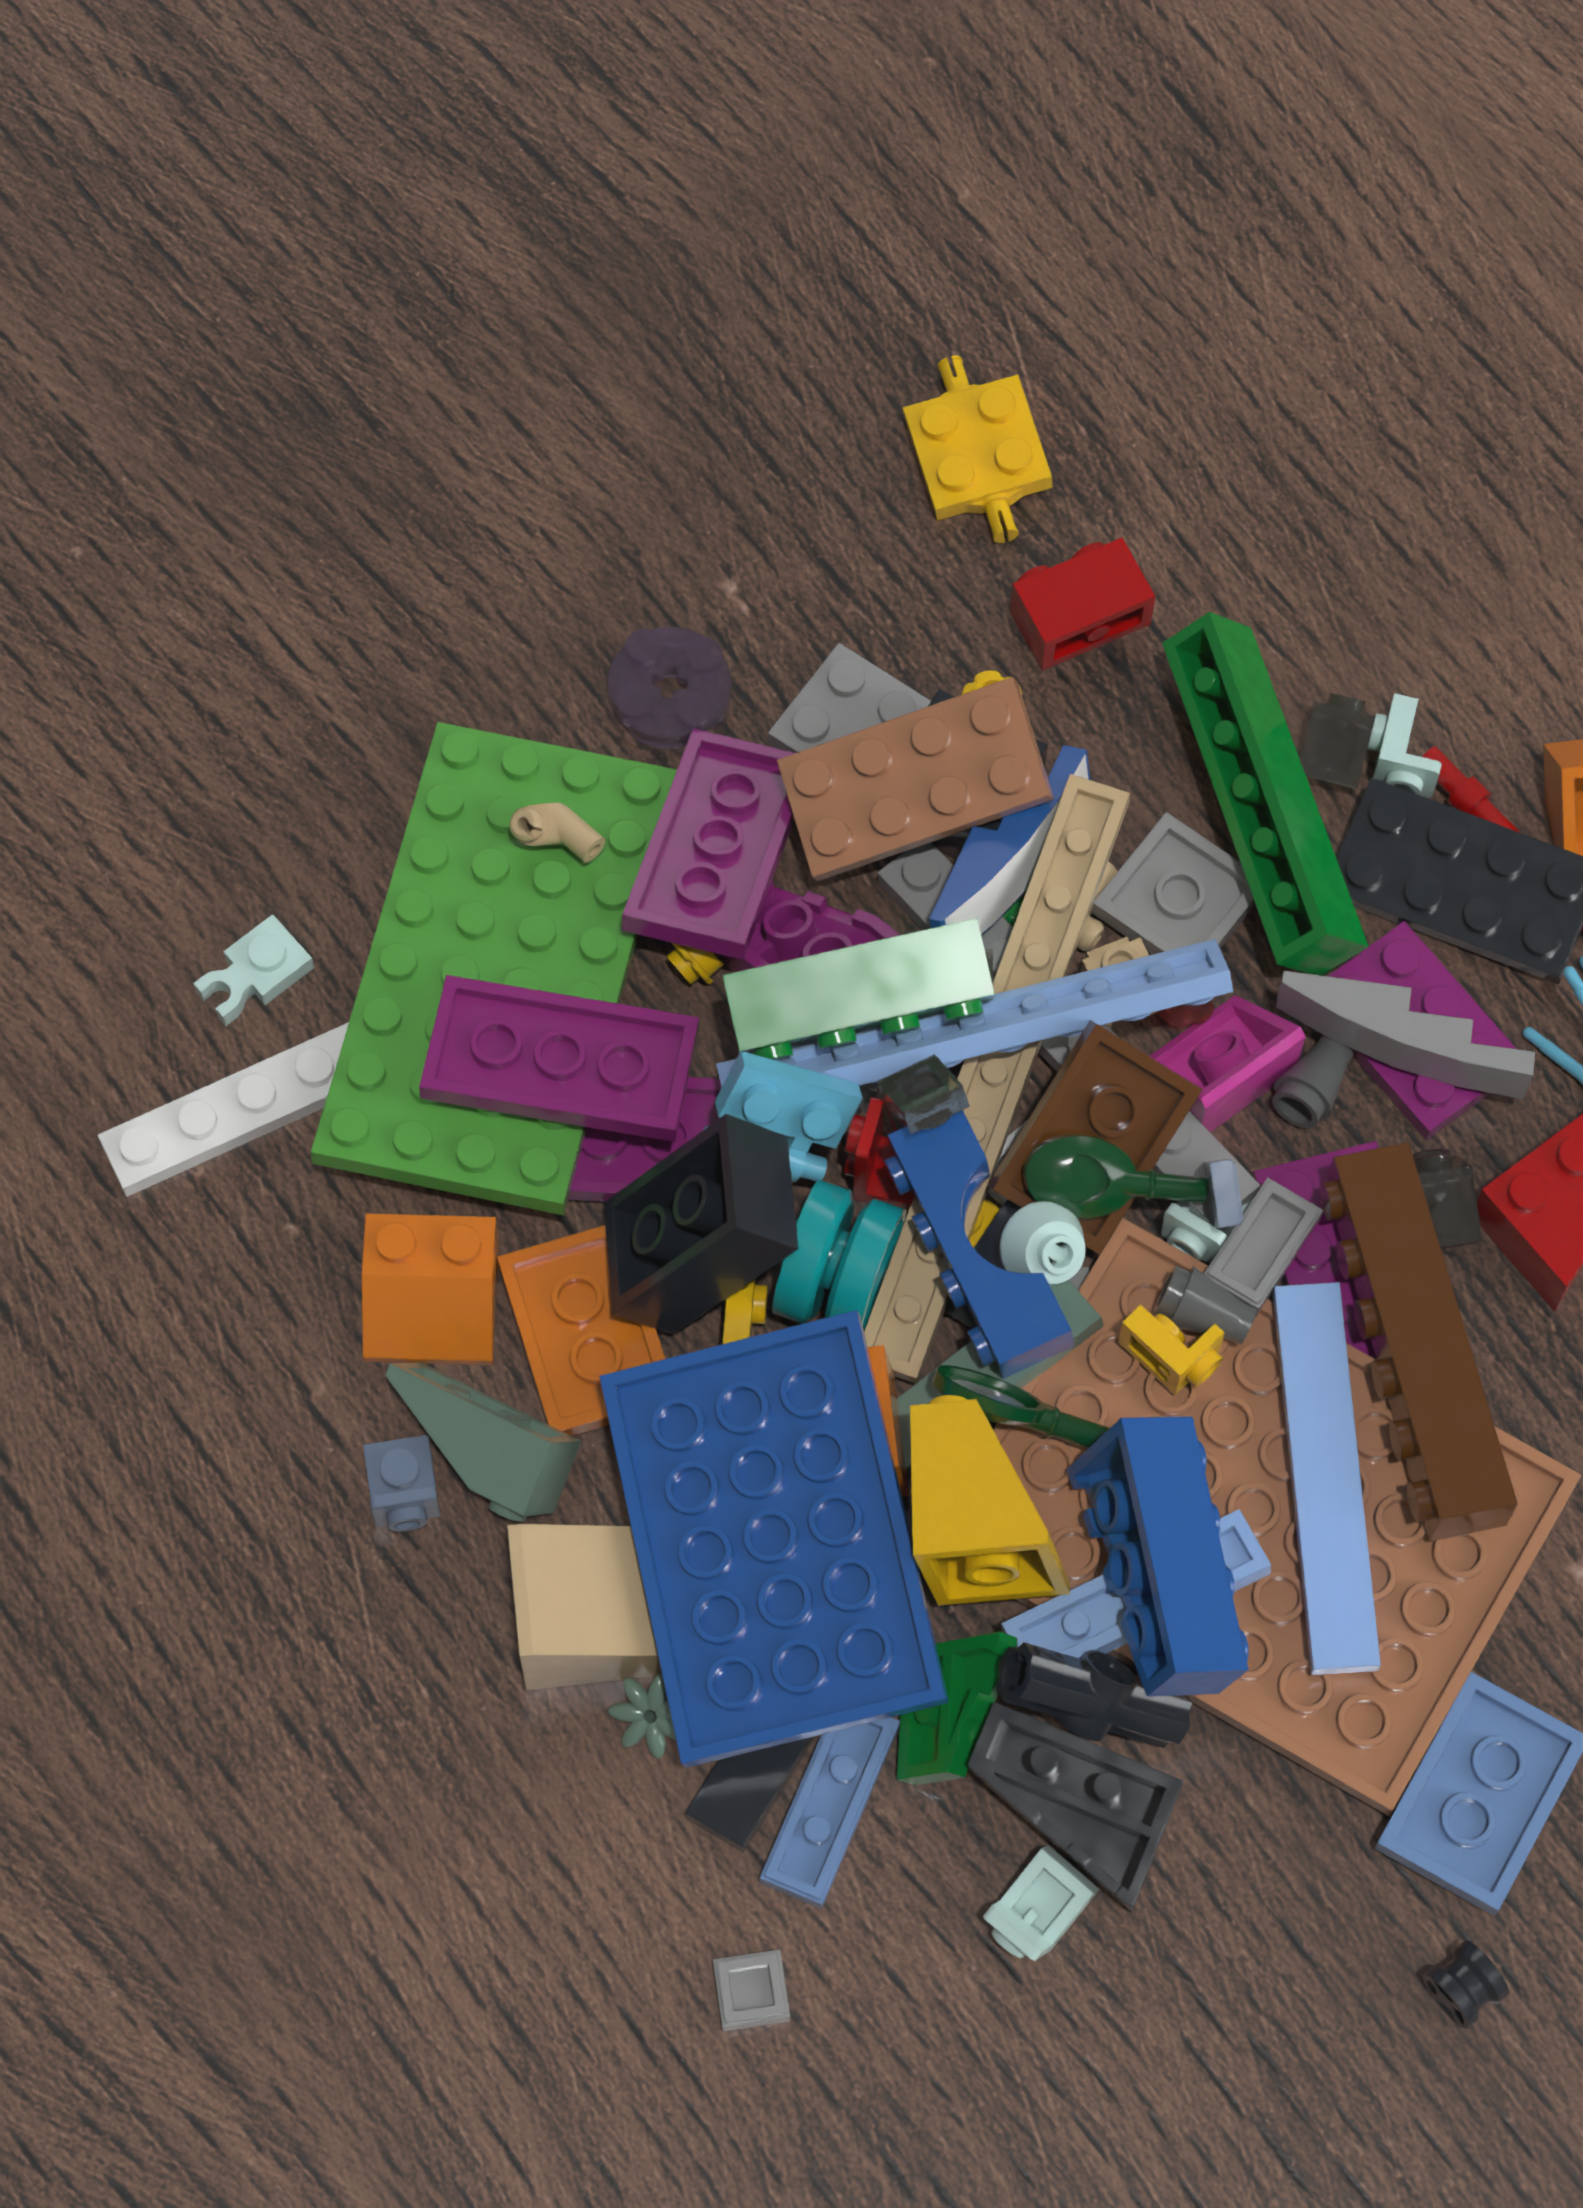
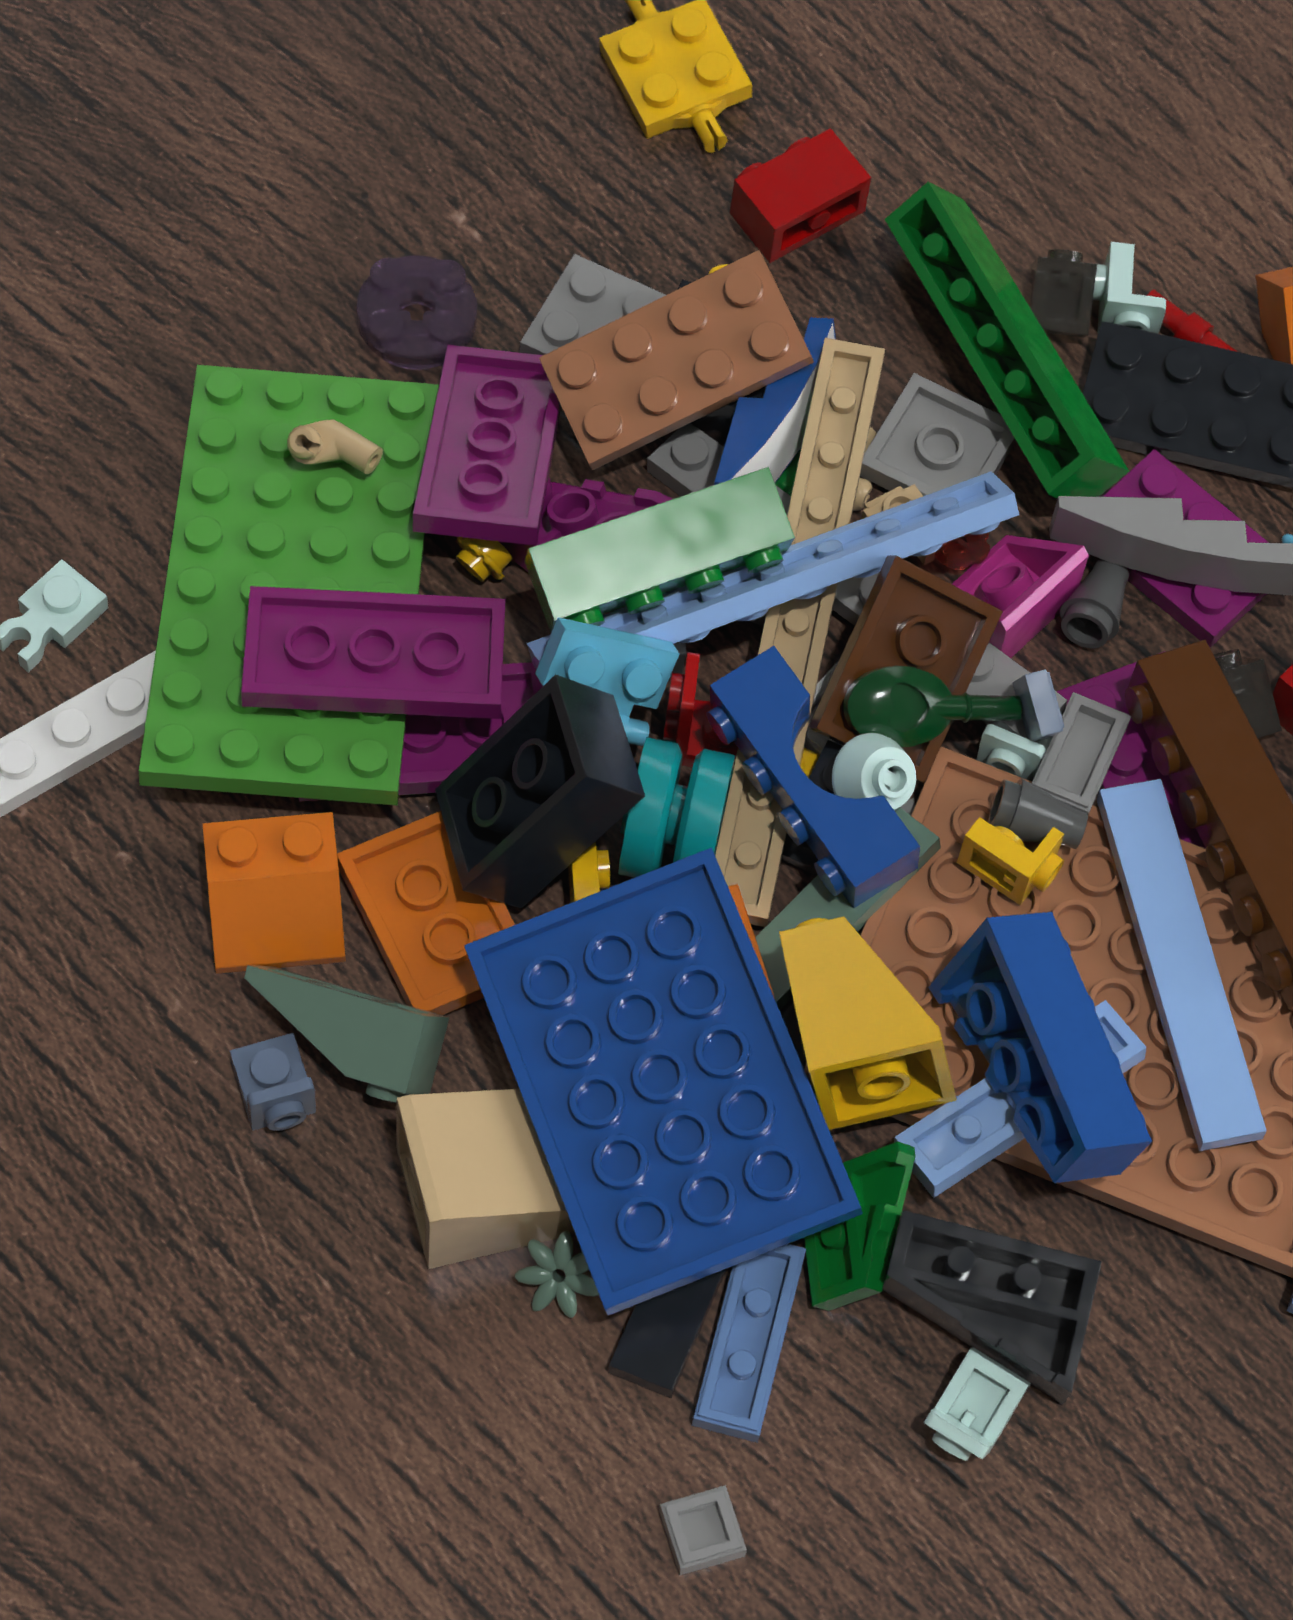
camera: 15 degrees left, 5 degrees down
(922, 1095) = (739, 642): clear smoke bracket -> none
(1014, 1406) = (881, 931): dark green piece -> none
(1091, 1695) = (996, 1193): black piece -> none

